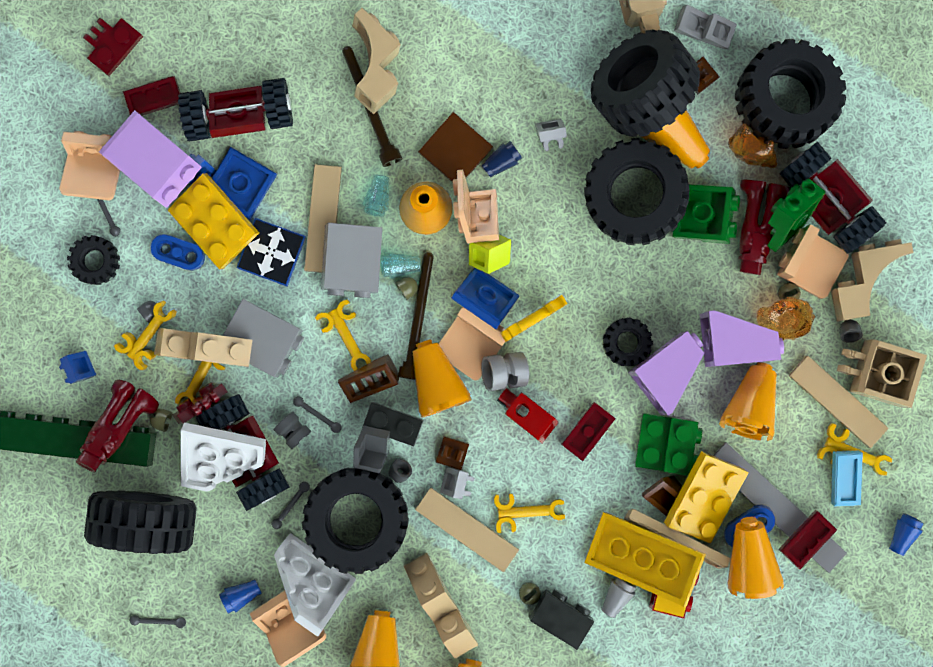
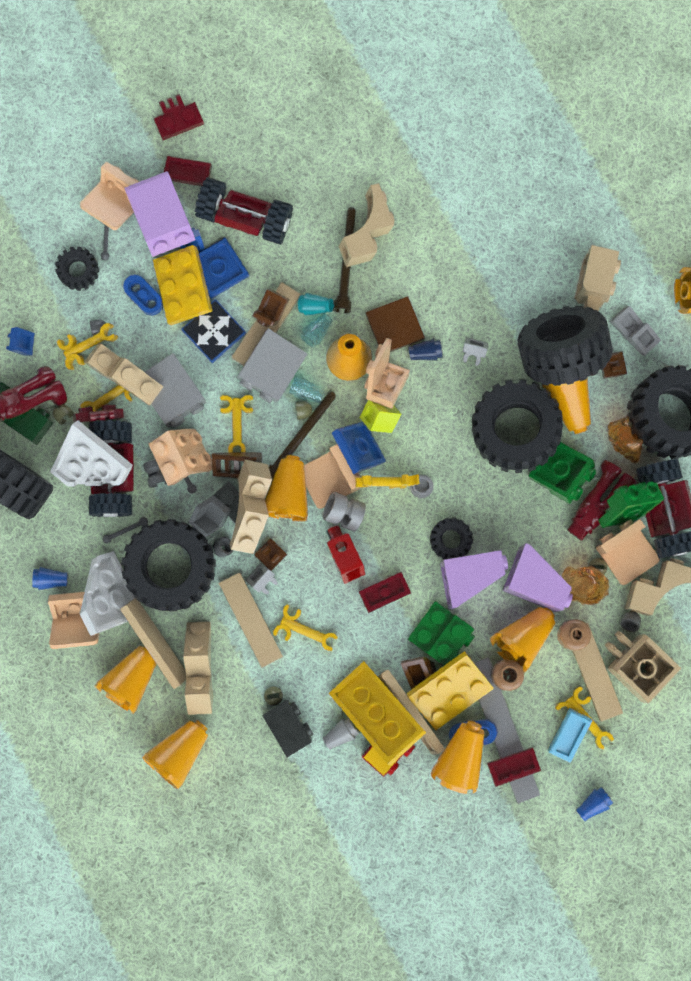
camera: 25 degrees right, 5 degrees down
(307, 400) = (180, 454): none -> light nougat bracket
(319, 199) = (271, 308): none -> reddish brown bracket
(360, 171) = (314, 304): none -> teal cone
(383, 605) = (154, 642): none -> tan tile
(414, 423) = (252, 509): none -> tan arch
(574, 303) = (424, 487): none -> light grey plate
(764, 451) = (515, 674): none -> medium nougat head
(802, 385) = (580, 630): none -> medium nougat head

